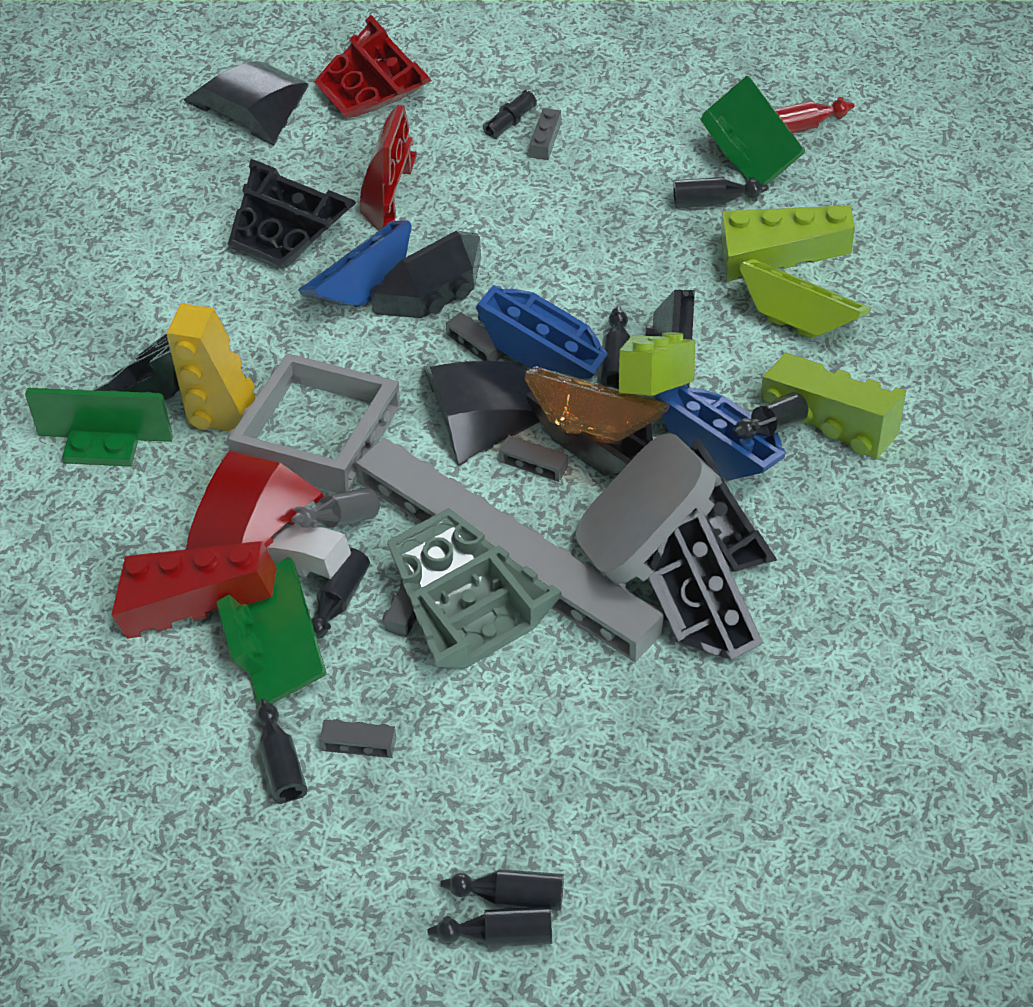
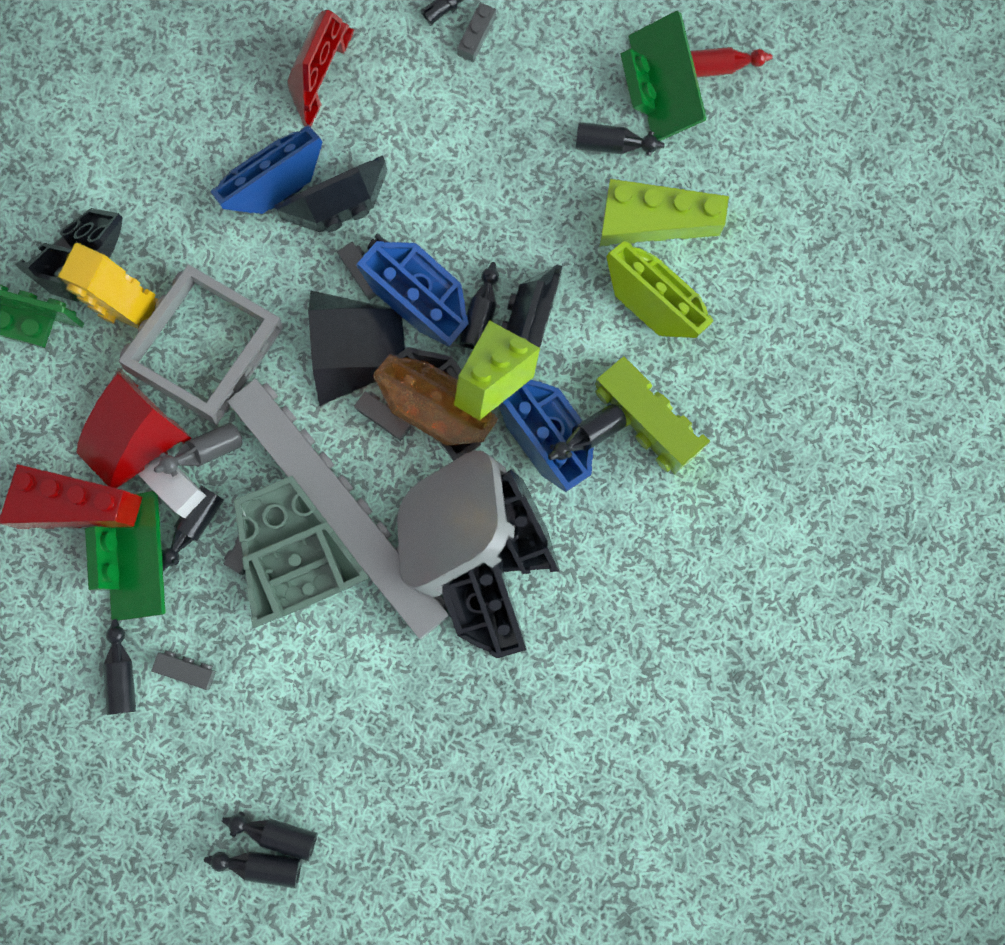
camera: 10 degrees right, 30 degrees up
(282, 216) = (213, 92): black wedge -> none

